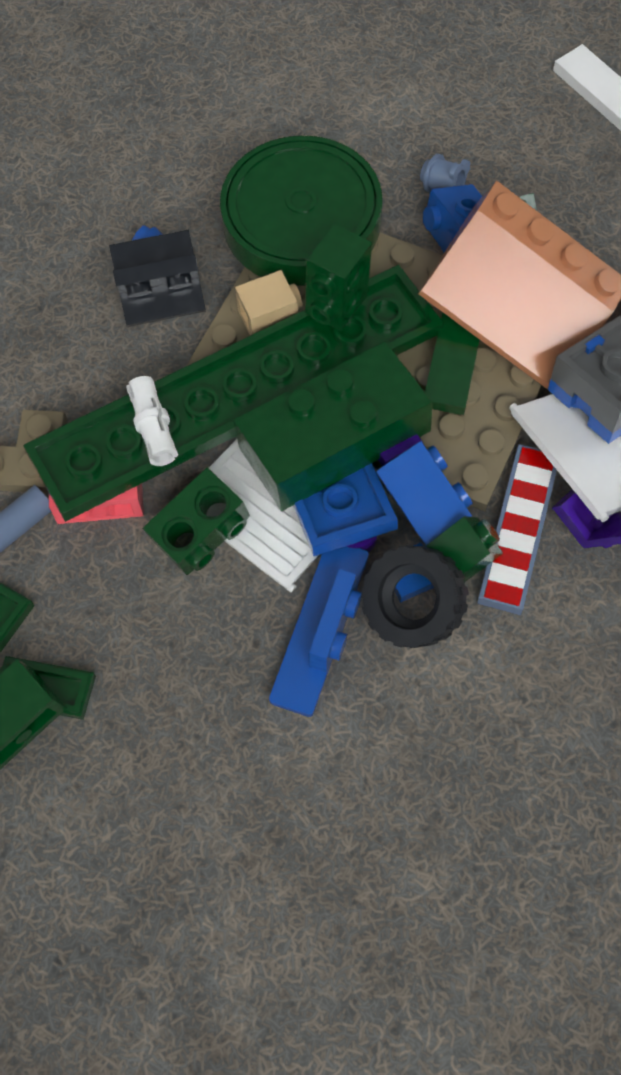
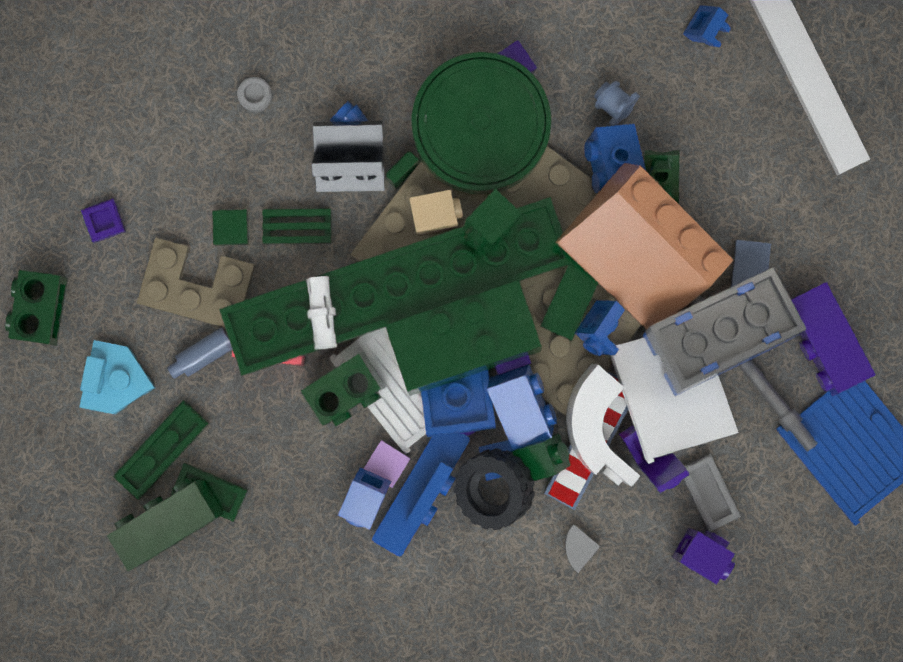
camera: 15 degrees right, 20 degrees up
(30, 382) = (230, 227): none -> dark green tile
(40, 248) = (254, 94): none -> light grey tile
(107, 360) = (267, 226): none -> dark green tile
(221, 281) = (402, 169): none -> dark green tile
(248, 647) = (364, 499): none -> brick
(269, 605) = (387, 462): none -> lavender tile
(493, 387) = (597, 325): none -> blue bracket
(514, 505) = (584, 425): none -> white arch
(523, 96) = (706, 24): none -> blue tile
(541, 657) = (579, 548): none -> light grey tile

